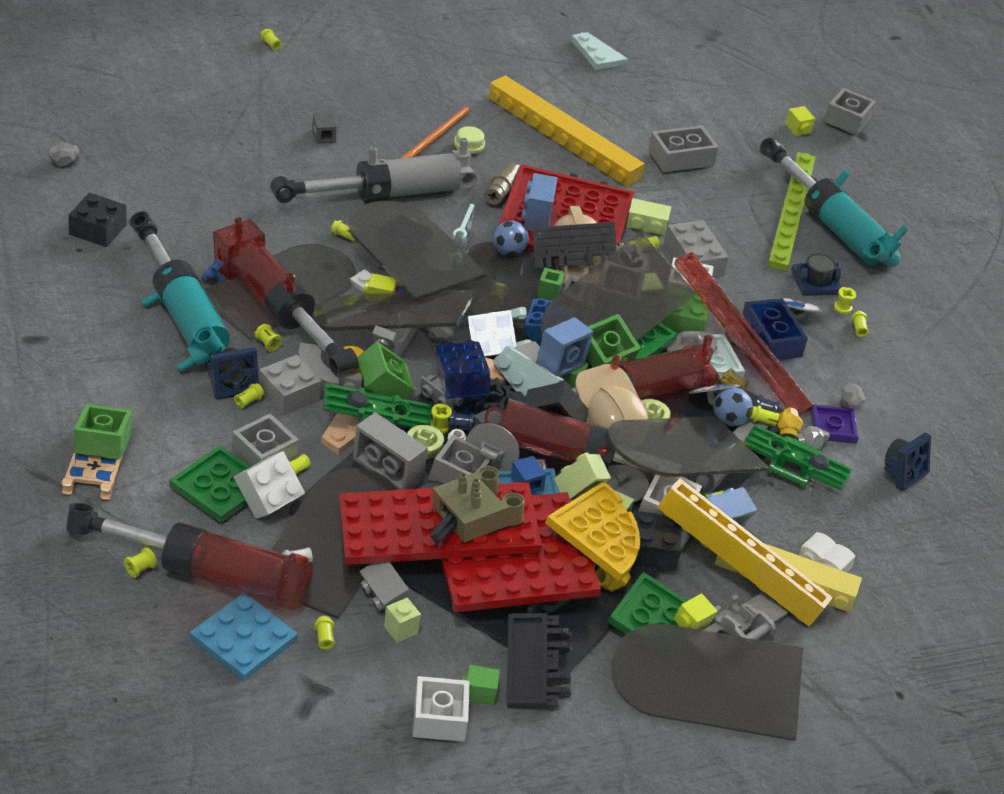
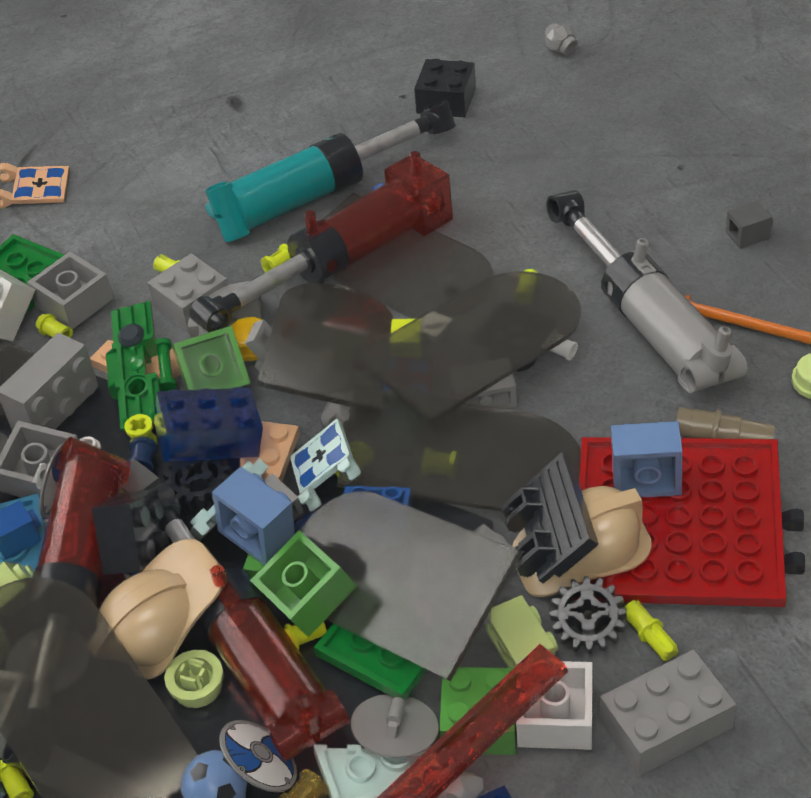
camera: 95 degrees right, 5 degrees up
(103, 431) = (73, 168): bright green brick -> none
(232, 369) = (200, 234): dark blue piece -> none
(428, 436) = (97, 421): yellowish green piece -> none
(463, 232) = (551, 394): light aqua flag -> none
(510, 238) = (553, 437): medium blue piece -> none
(550, 284) = (458, 504): bright green brick -> none
(648, 217) = (735, 633): yellowish green brick -> none

